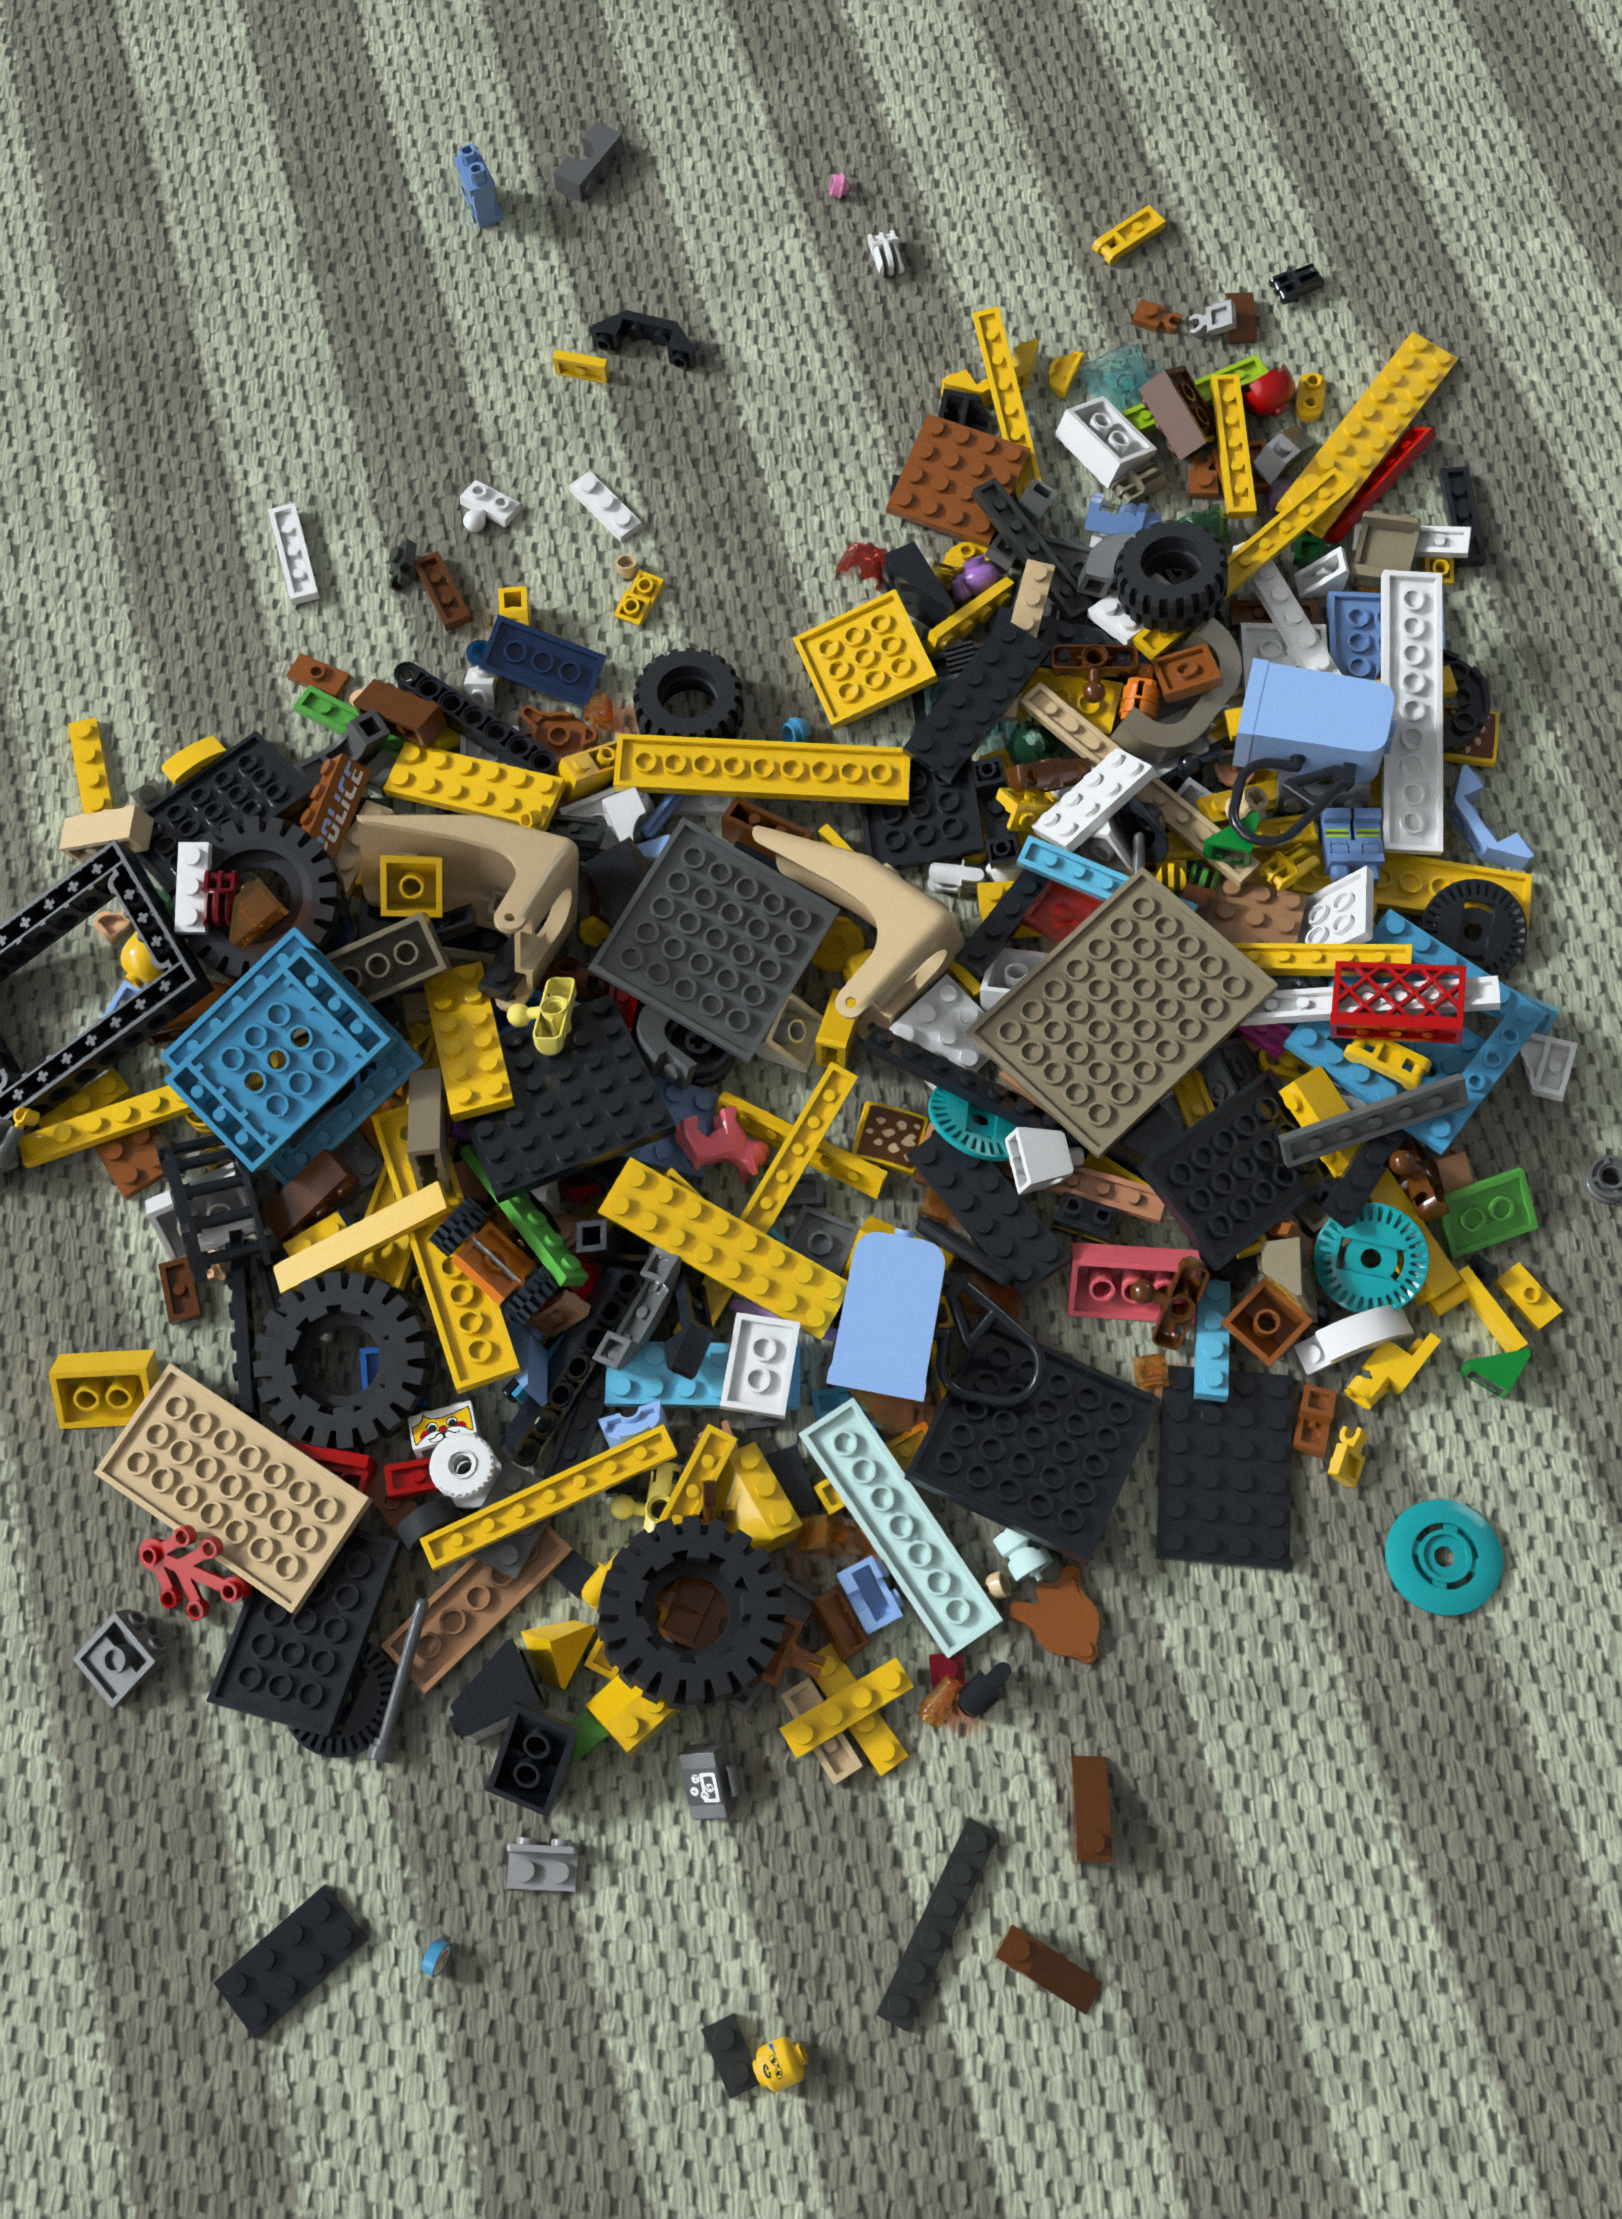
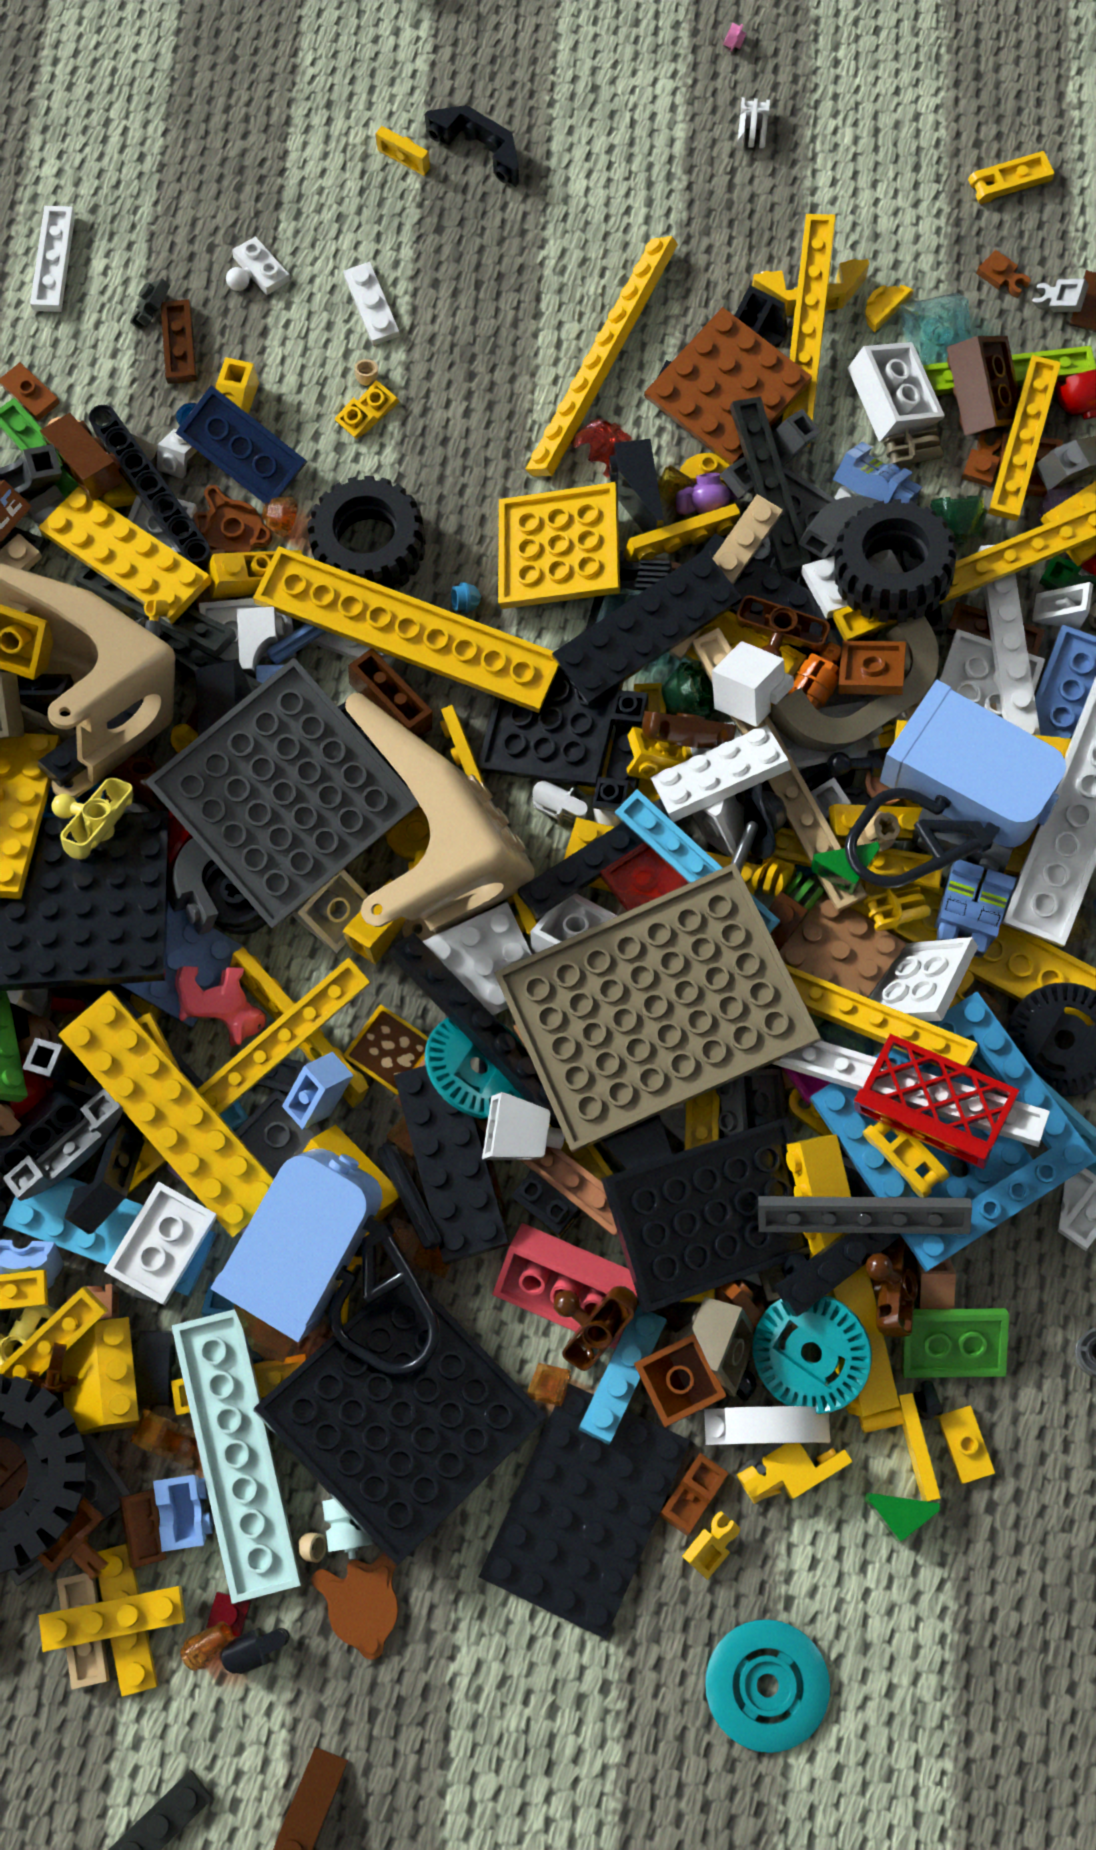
camera: 20 degrees right, 5 degrees up
(833, 490) = (601, 357): none -> yellow plate
(845, 1188) = (317, 1090): none -> light blue brick
(1089, 716) = (749, 683): none -> white plate

